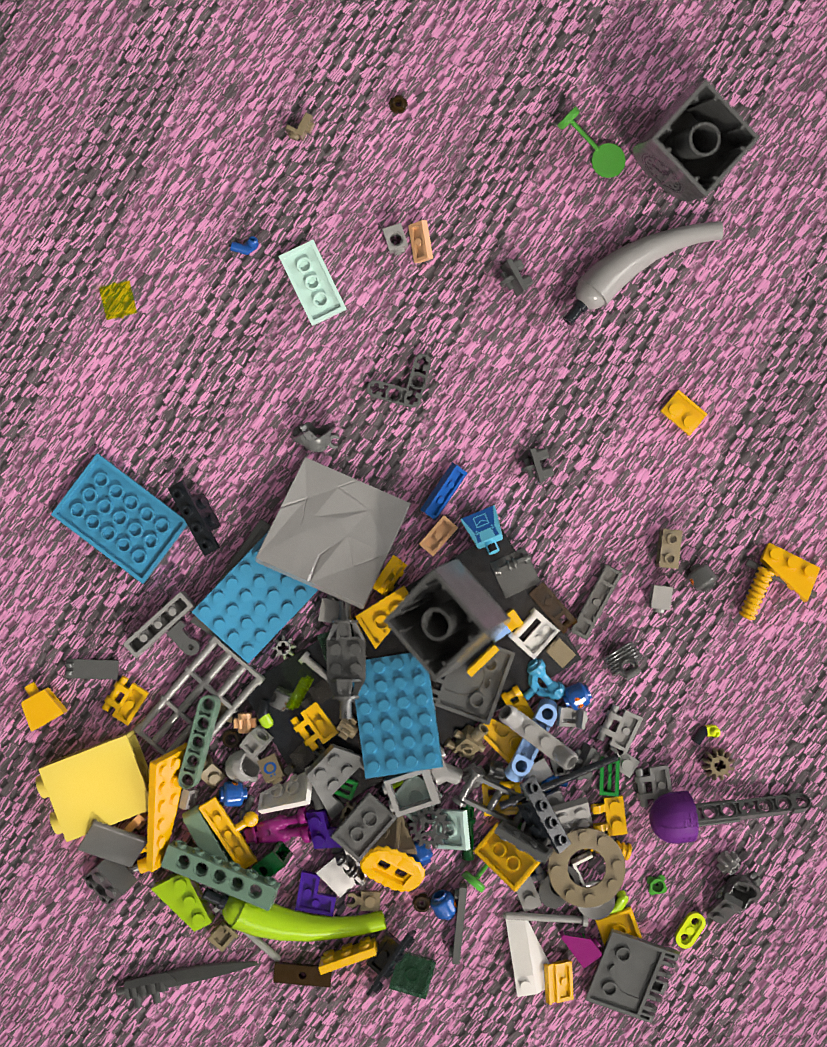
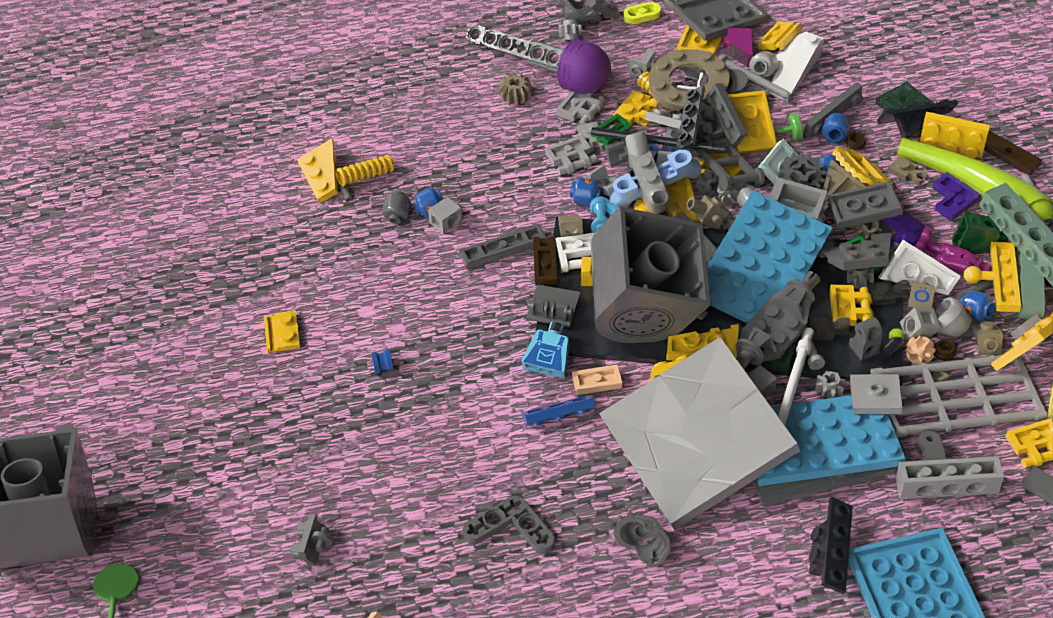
camera: 135 degrees left, 40 degrees down
(193, 748) = (973, 360): sand green beam -> none
(244, 653) = (876, 394): none -> light grey plate
(299, 692) = (841, 332): clear neon green piece -> none
(317, 658) = (803, 349): none -> white bar
(342, 873) = (913, 196): hinge -> none
(347, 728) = (823, 287): dark tan gear -> none
(537, 456) = (453, 373): dark grey hips -> none
(547, 936) = (764, 64): none -> light grey head
(591, 439) = (382, 361): none -> blue wheel
(615, 270) = (212, 472): light grey animal -> none
(626, 654) = (521, 192): dark grey piece -> none
(638, 872) = (638, 66): none -> light grey bracket
(661, 888) = (639, 49): bright green plate -> none
(668, 548) = (402, 241): dark tan brick -> none
(683, 599) = (426, 200): none -> blue head
(706, 731) = (504, 116): arm -> none

